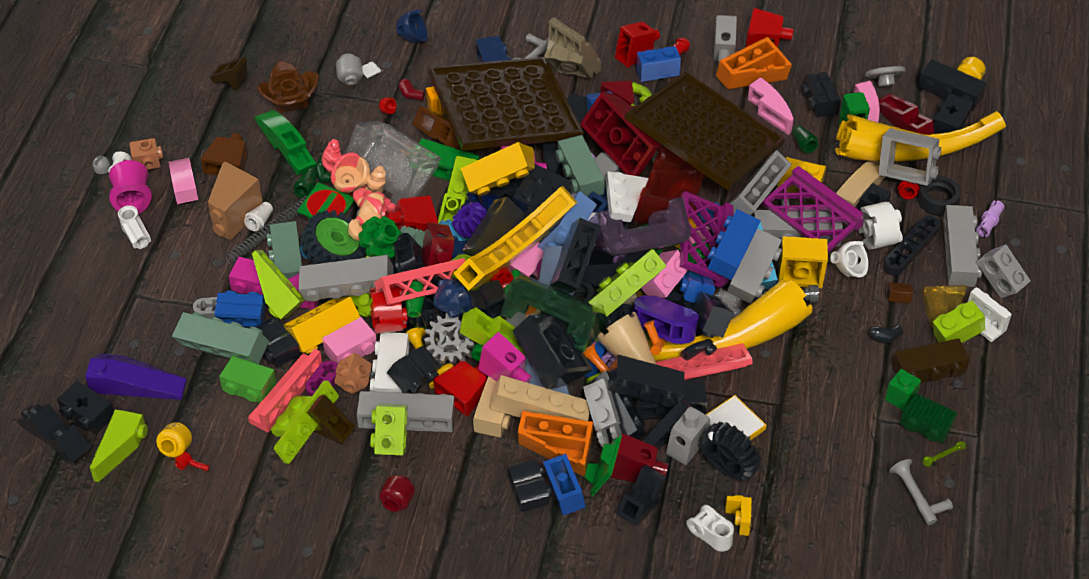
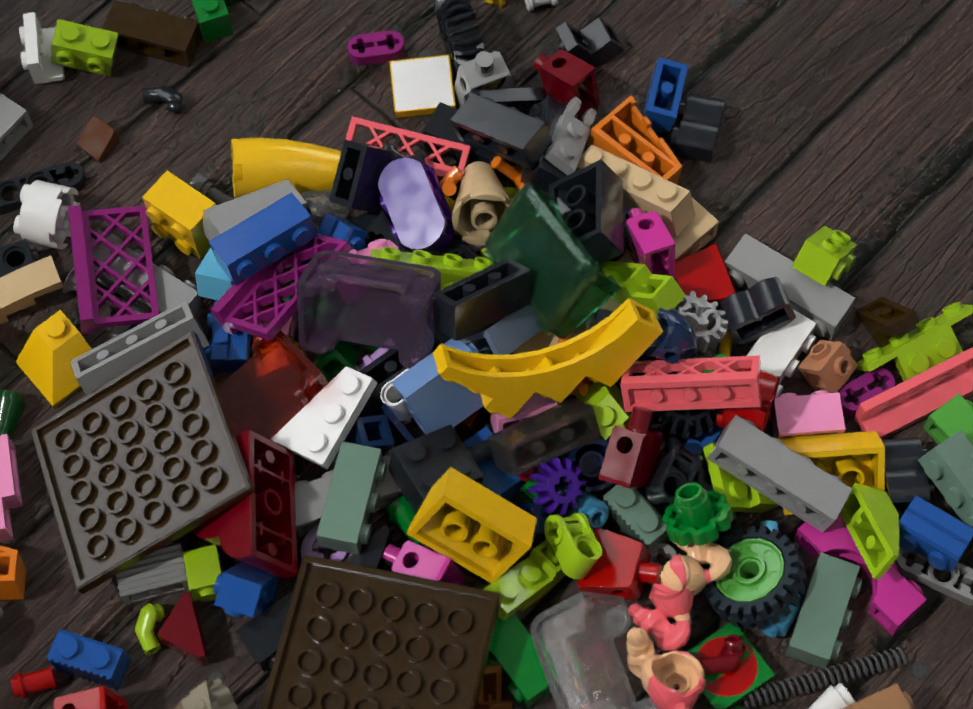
camera: 145 degrees left, 15 degrees up
(327, 201) = (728, 657): none -> dark red arm
(397, 493) = (854, 187): dark red head -> none
(445, 203) = (575, 544): none -> lime piece
(601, 472) = (605, 86): green piece -> none
(780, 429) = (376, 47): none -> magenta beam
(847, 259) = (121, 192): white helmet -> none
(942, 299) = (64, 100): clear yellow wing -> none

